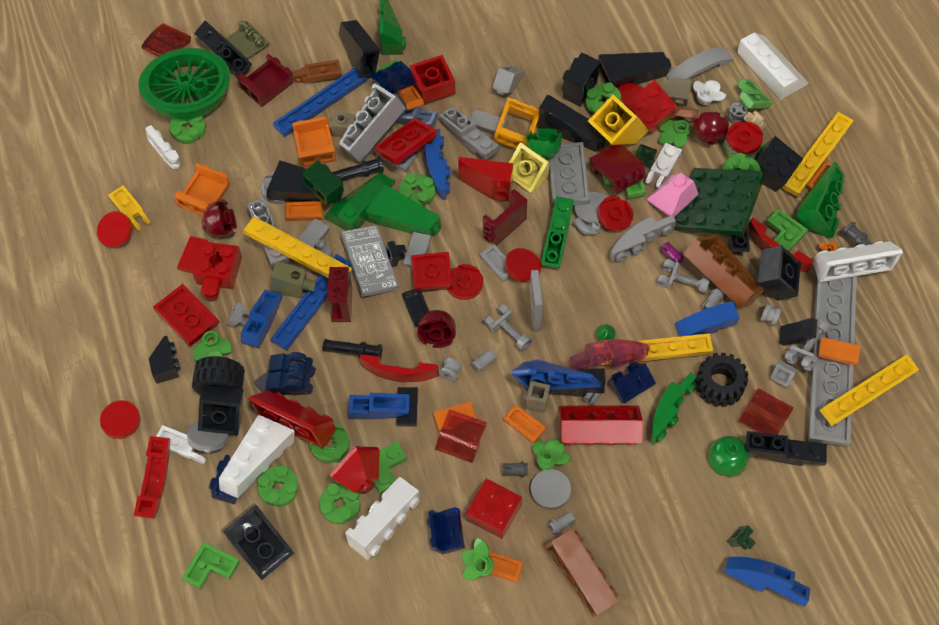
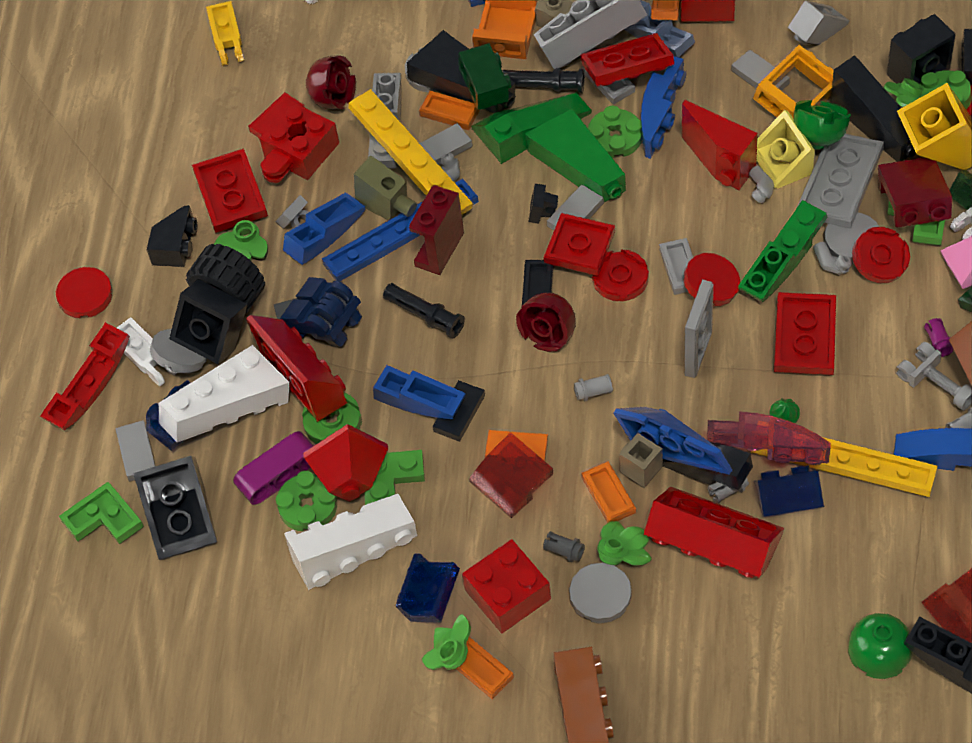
camera: 30 degrees right, 5 degrees down
(114, 229) = (193, 52): red tile -> none
(203, 189) = (333, 36): orange panel -> none
(209, 513) = (135, 448): none -> light grey tile
(275, 475) = (230, 436): bright green plate -> none
(310, 489) = (273, 468): none -> magenta beam
(369, 260) = (502, 202): light grey tile -> none
(399, 374) = (499, 373): red slope -> none
(450, 369) = (540, 382): light grey wheel -> none
(466, 132) = (723, 78): light grey slope -> none
(497, 230) = (715, 211): dark red panel -> none
(523, 191) = (764, 184): none -> light grey arm
(523, 342) = (660, 381): light grey bar -> none
(561, 523) = (599, 641): light grey pin -> none
(586, 107) = (905, 92): none -> bright green plate
(594, 279) = (805, 333): none -> red plate
(635, 239) = (890, 299): light grey slope -> none
(668, 407) = (818, 547): green slope -> none
(721, 365) = (928, 514): black tyre -> none

